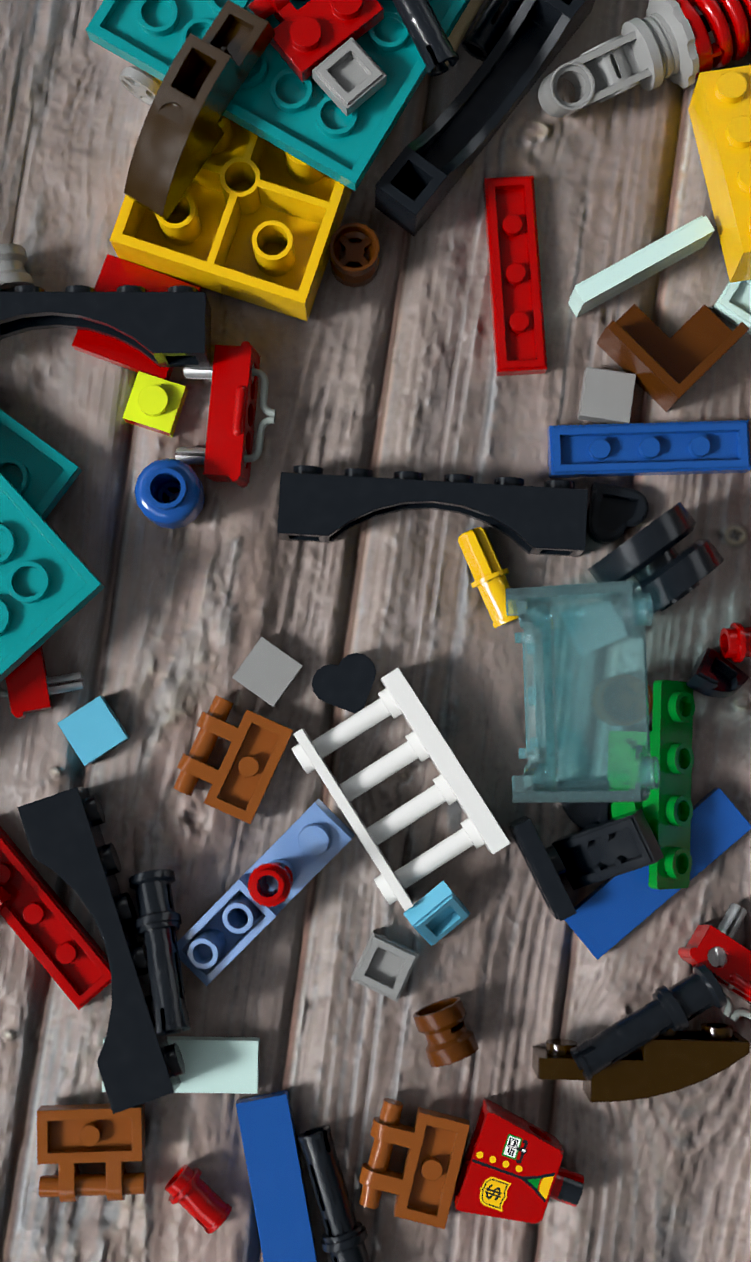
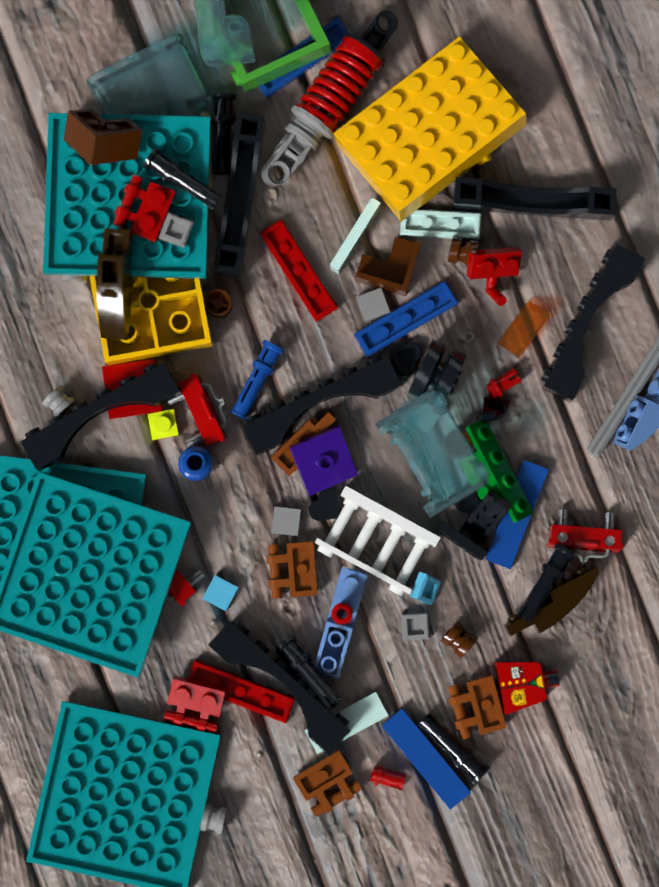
camera: 25 degrees left, 0 degrees up
(366, 558) = (311, 427): none -> dark orange hinge
(367, 400) = (262, 368): none -> blue pin
(384, 604) = (323, 460): none -> dark purple plate
(487, 573) = (362, 419): yellow axle -> none

